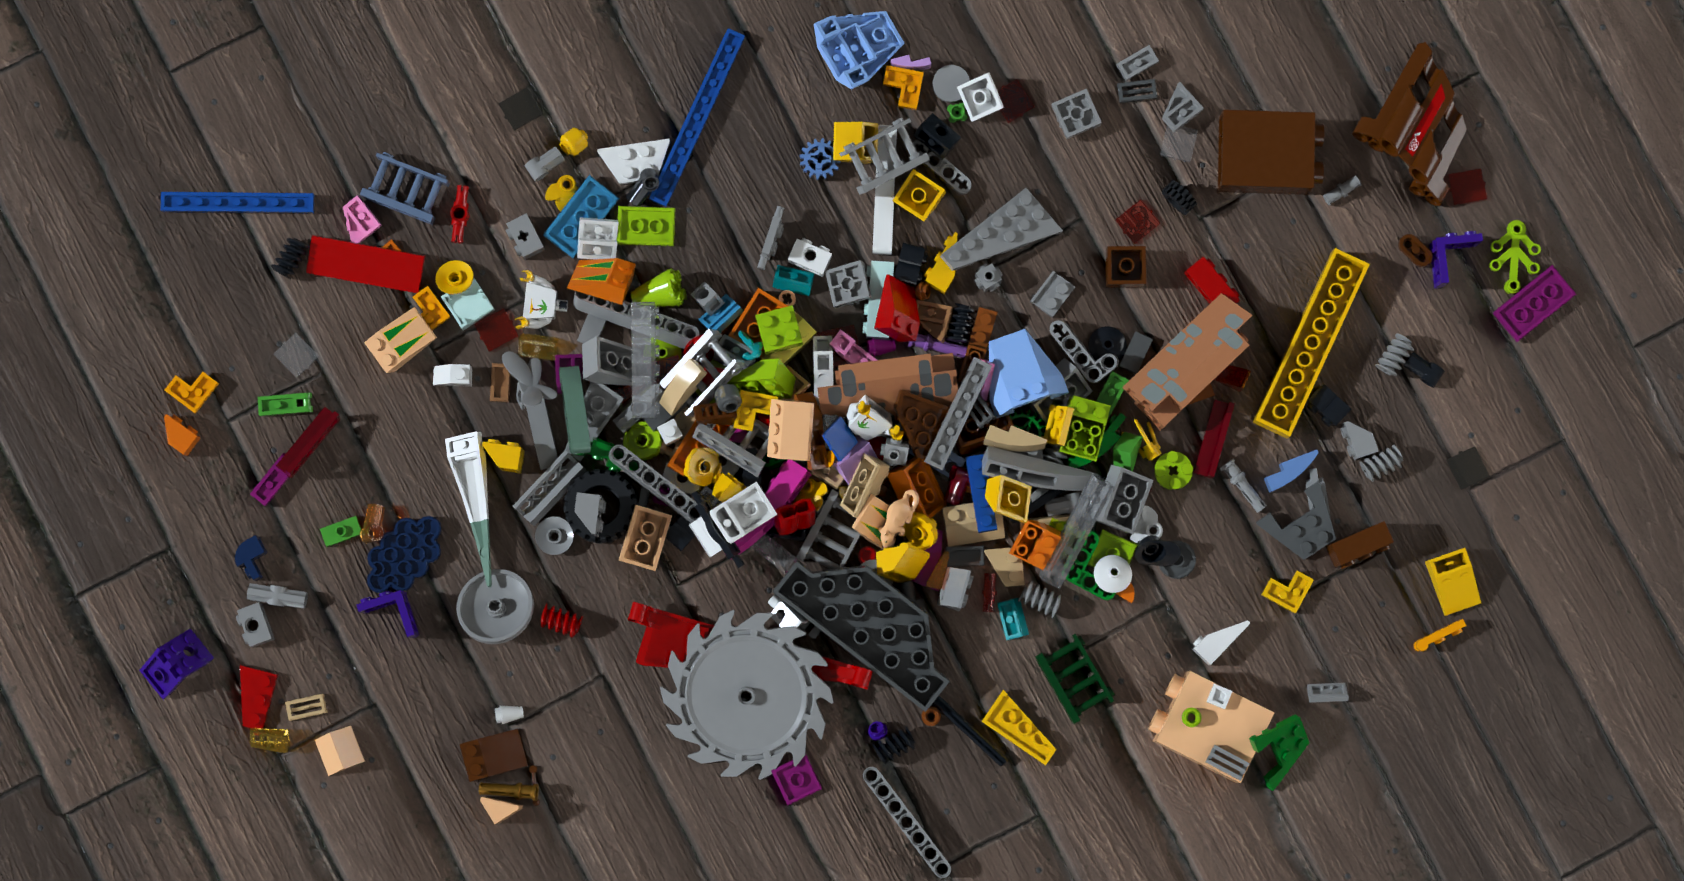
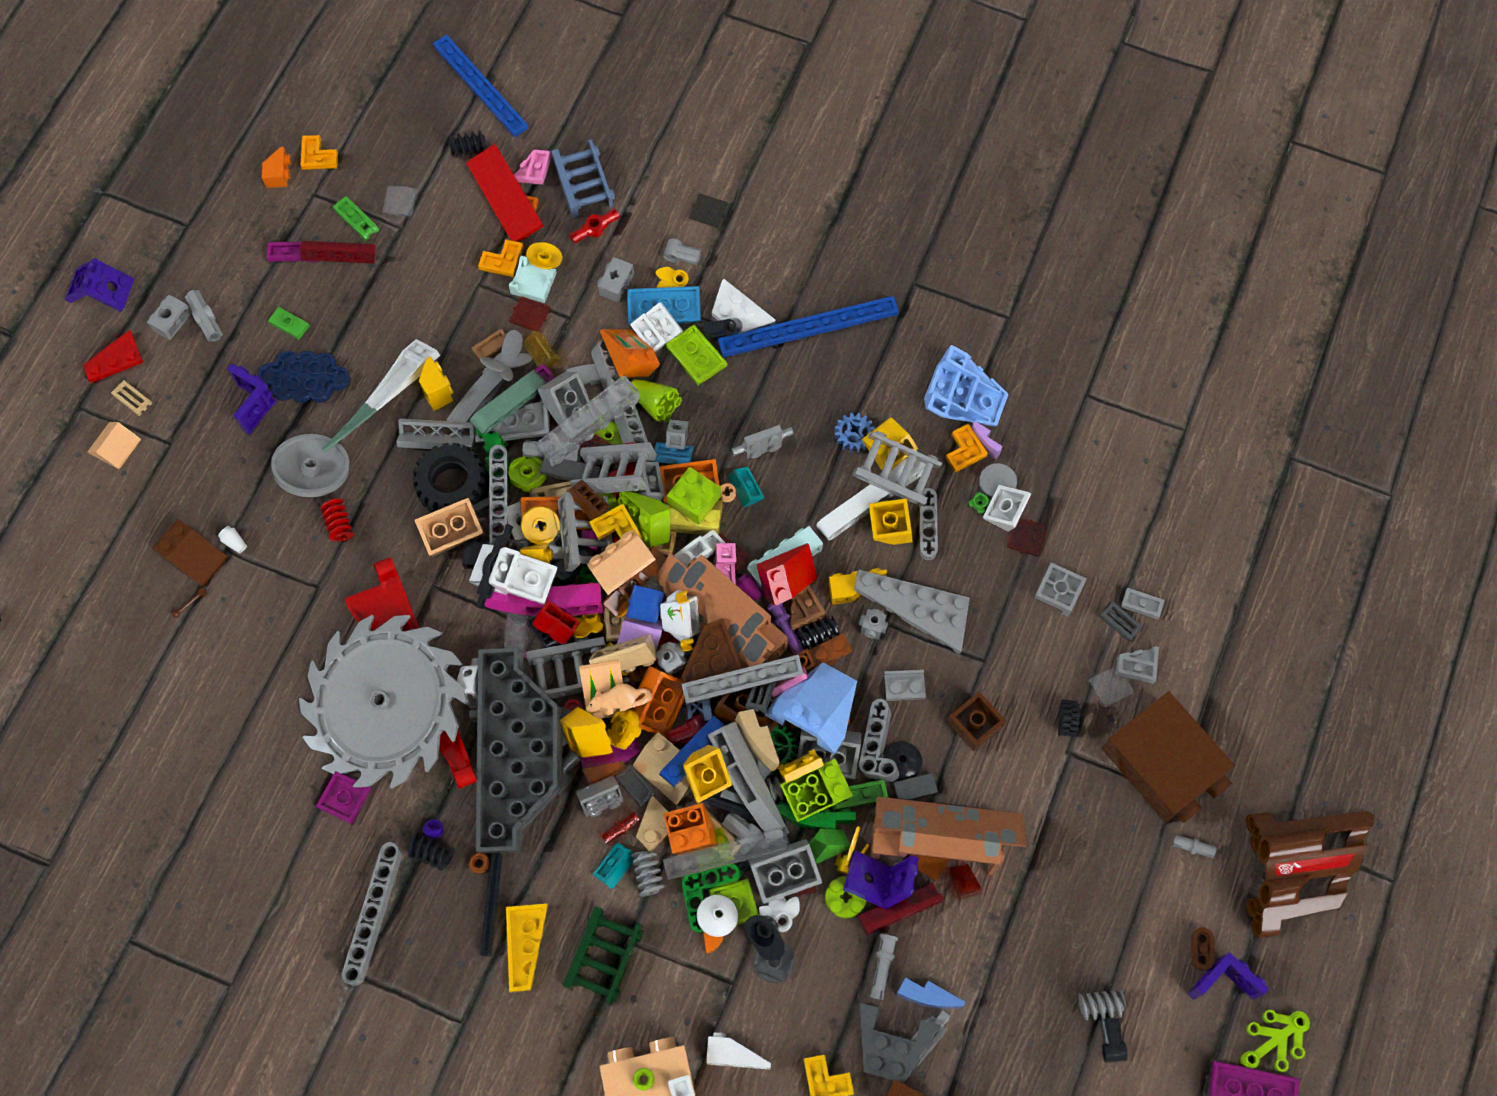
camera: 50 degrees right, 15 degrees down
(247, 554) = (220, 274): dark blue brick -> none
(276, 734) = (92, 396): clear yellow slope -> none
(373, 522) = (312, 336): clear orange piece -> none
(400, 340) = (464, 254): light nougat slope -> none
(452, 375) = (470, 310): white slope -> none
(499, 809) = (145, 586): light nougat slope -> none
(518, 791) = (173, 591): pearl gold pin -> none
(540, 302) = (573, 325): white torso -> none
(547, 528) = (396, 461): light grey dish -> none
(573, 141) = (715, 259): yellow head -> none
(589, 510) = (432, 466): light grey slope -> none
(670, 432) = (548, 483): white brick -> none
(682, 386) = (591, 460): tan slope -> none
(728, 398) = (608, 498): dark grey head -> none
(755, 347) = (665, 483): teal piece -> none
(816, 266) = (773, 493): white brick -> none
(848, 284) = (776, 523): light grey piece -> none
(910, 264) = (832, 558): black brick -> none
(923, 291) = (820, 584): dark orange plate -> none
(937, 136) = (948, 500): black brick -> none
(1137, 221) = (1020, 705): clear red piece -> none
(1191, 432) = (887, 884): none -> dark purple bracket
(1209, 282) = (1023, 798): red brick -> none
(1311, 343) = (1048, 923): yellow brick -> none
(1328, 405) = (1011, 982): black brick -> none
(1360, 441) = (1005, 1035): light grey slope -> none
(1382, 463) = (1002, 1071): light grey piece -> none
(1467, 186) = (1294, 950): clear red piece -> none

